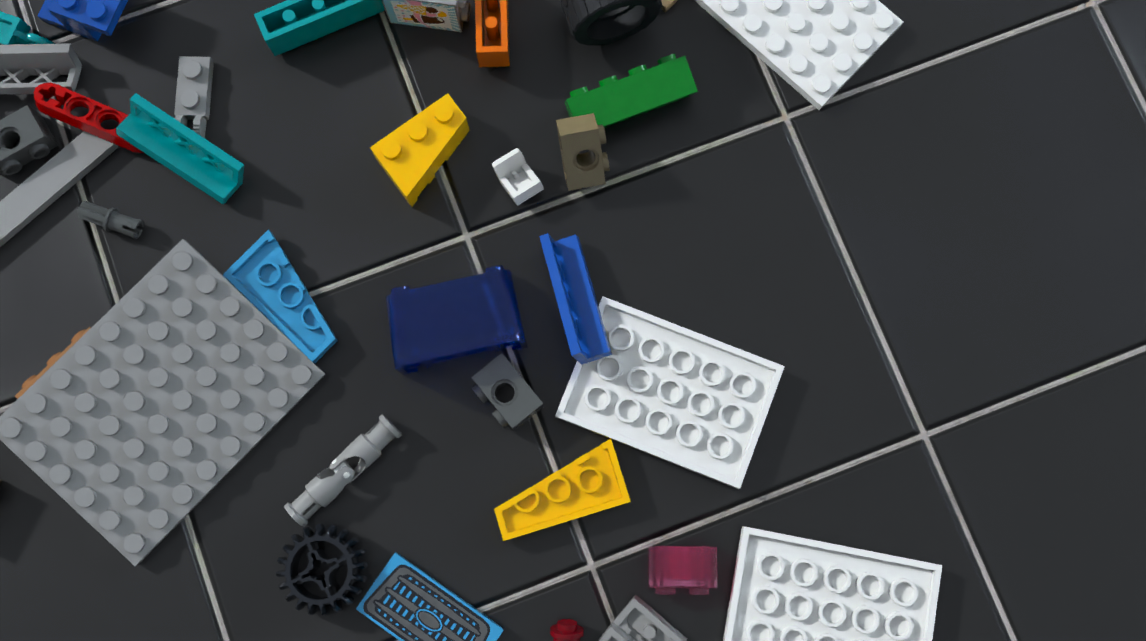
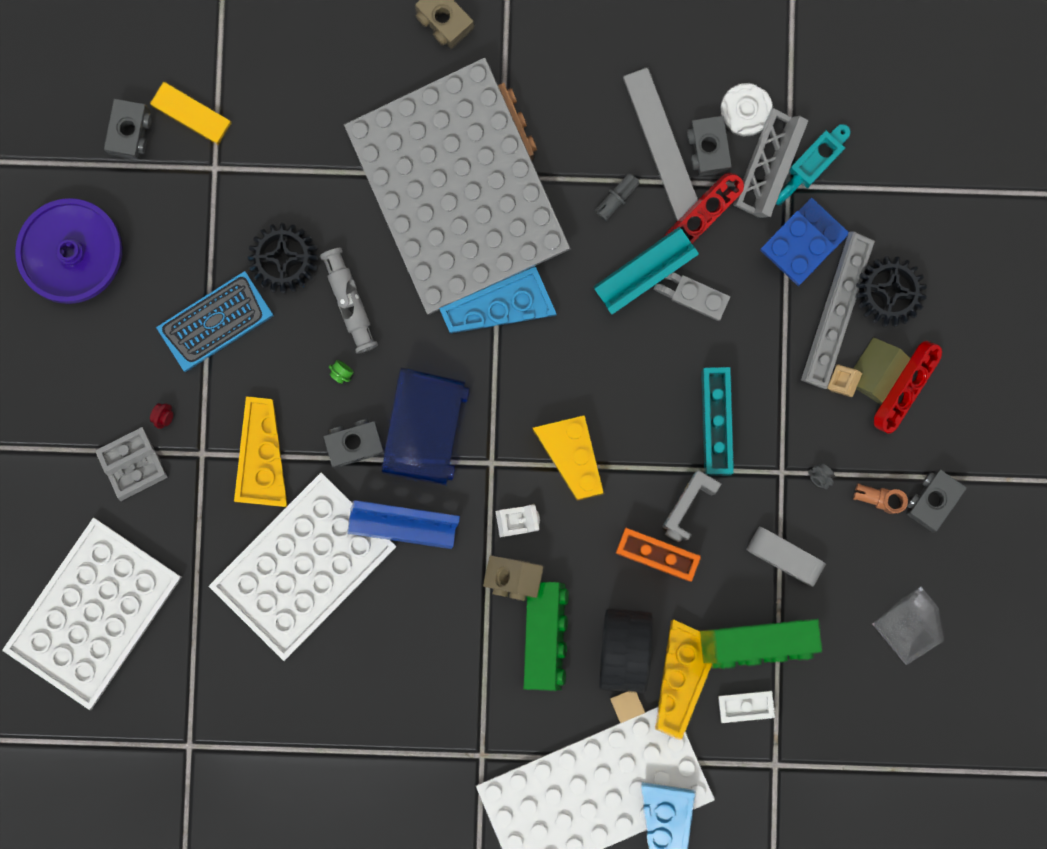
camera: 115 degrees right, 5 degrees up
(430, 443) = (341, 372): none -> bright green plate
(682, 568) = (170, 518): clear pink brick -> none

